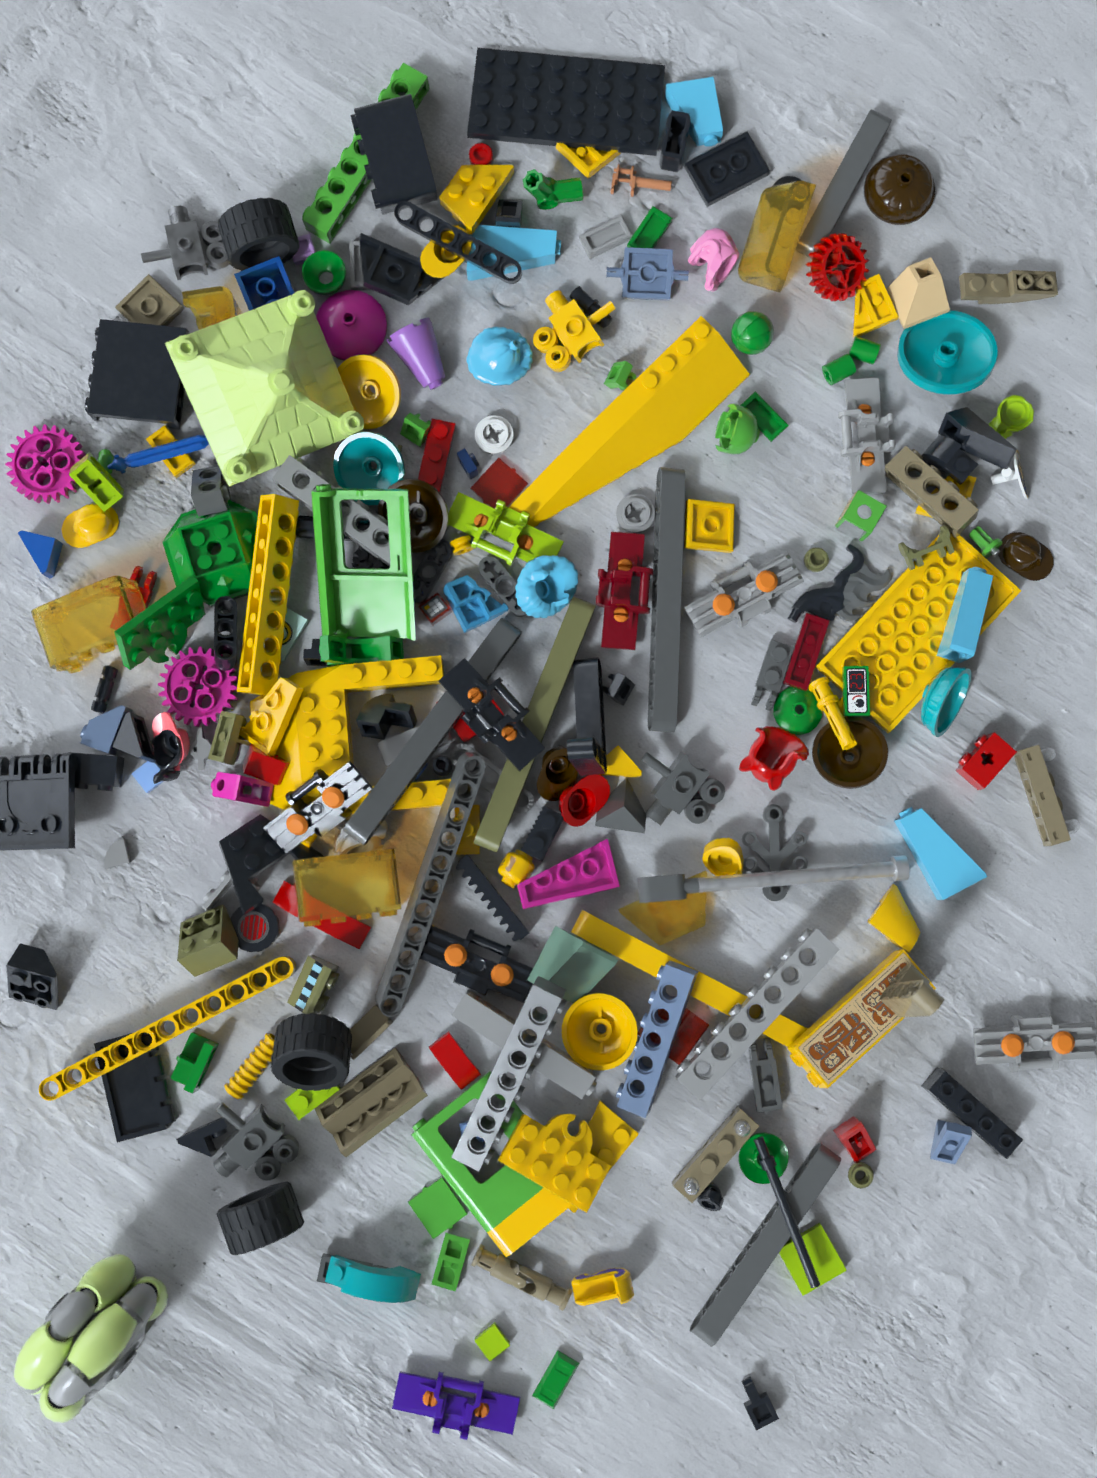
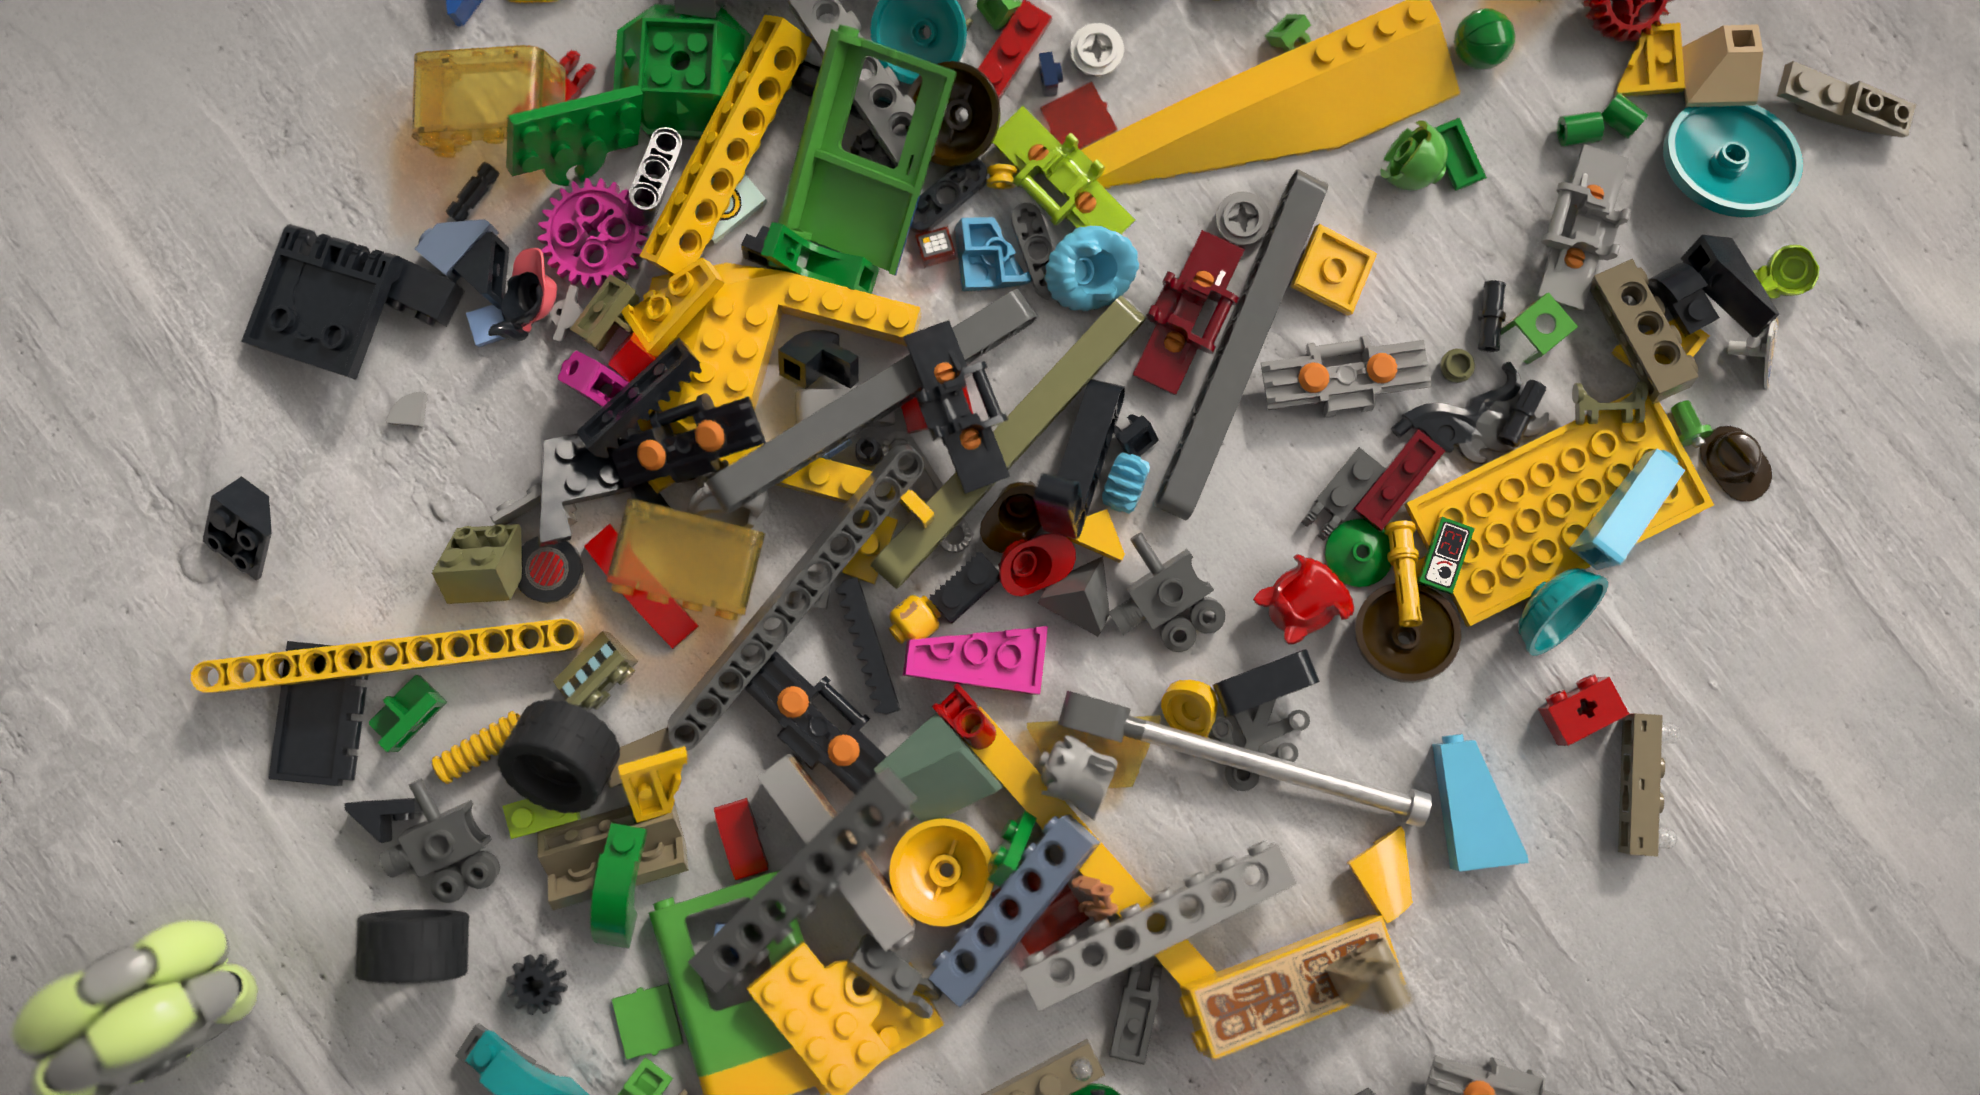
camera: 20 degrees right, 0 degrees up
(273, 789) = (638, 398): none -> black gear
(351, 1202) = (537, 997): none -> black gear
(382, 1045) = (653, 782): none -> yellow wing
(382, 1124) = (613, 894): none -> green arch
(491, 793) = (917, 508): none -> yellow tile
(573, 920) = (962, 715): none -> red piece
(593, 1114) = (893, 976): none -> dark grey hinge
(624, 722) = (1125, 482): none -> medium azure gear
(640, 998) = (1007, 856): none -> green plate
(665, 932) = (1077, 774): none -> light grey hat
(712, 1016) = (1097, 909): none -> nougat piece
(768, 822) = (1265, 683): none -> black beam
(826, 517) = (1491, 316): none -> black pin
(871, 576) = (1522, 413): none -> black axle

